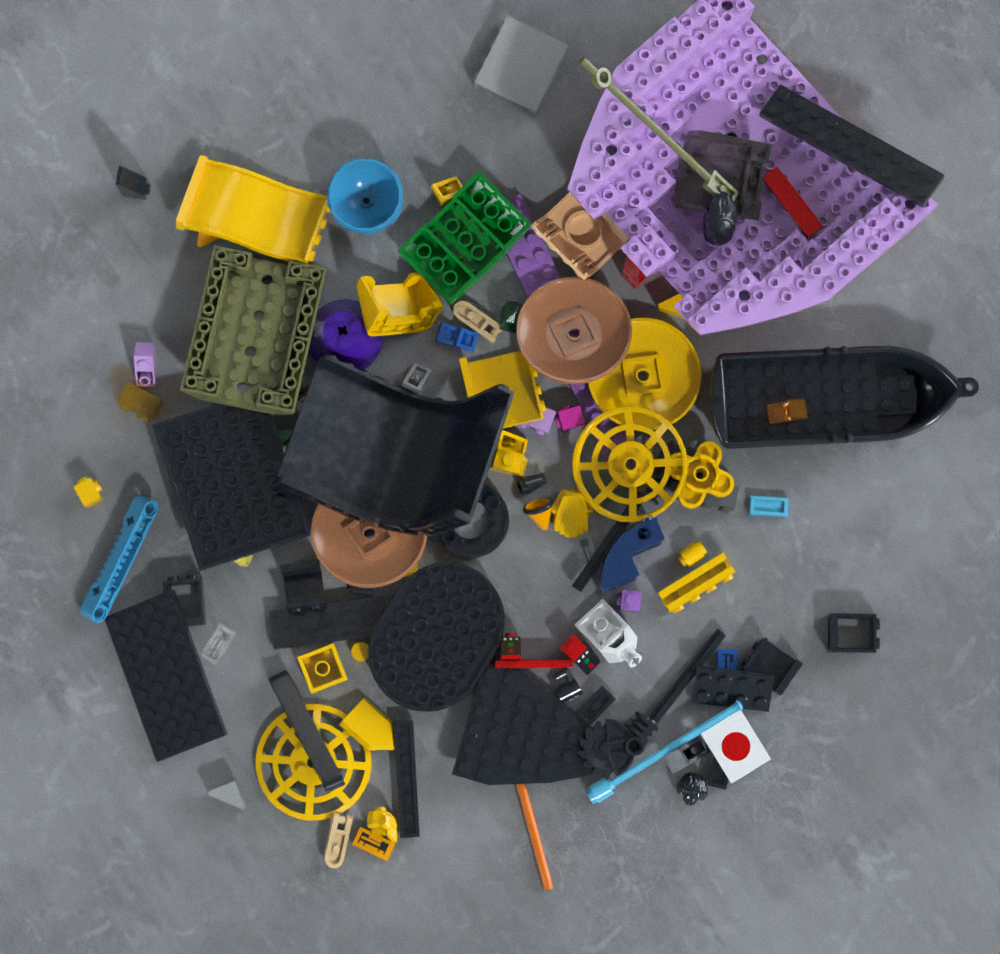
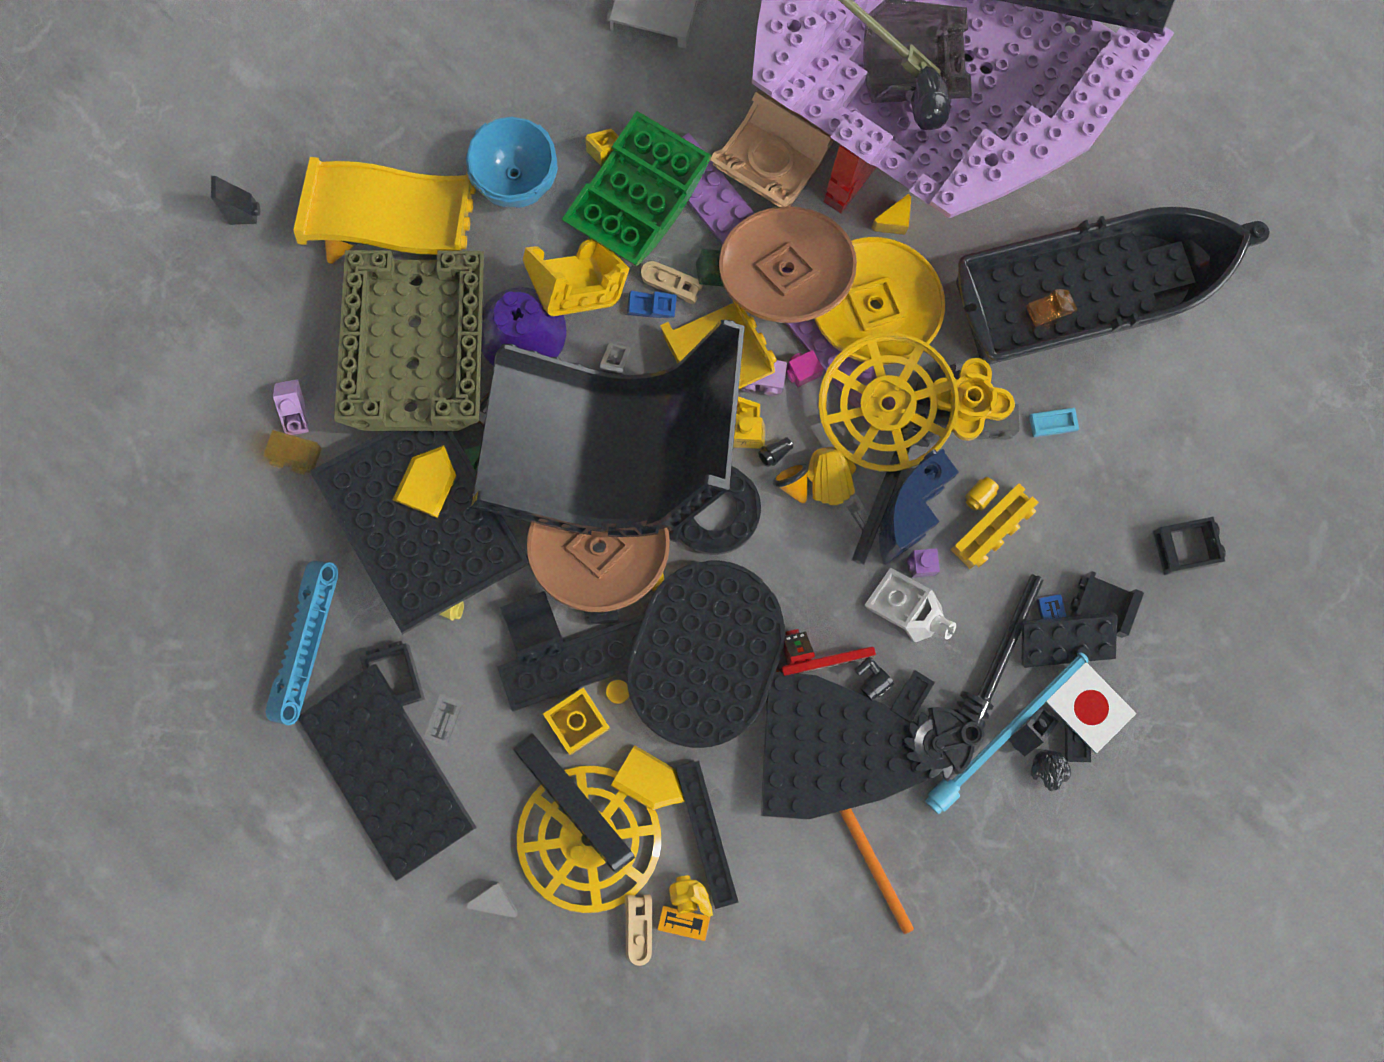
camera: 20 degrees left, 5 degrees down
(88, 491) = (250, 570): yellow brick -> none
(243, 452) = (427, 482): none -> yellow tile
(580, 655) = (880, 637): slope -> none
(792, 202) = (1002, 72): red tile -> none

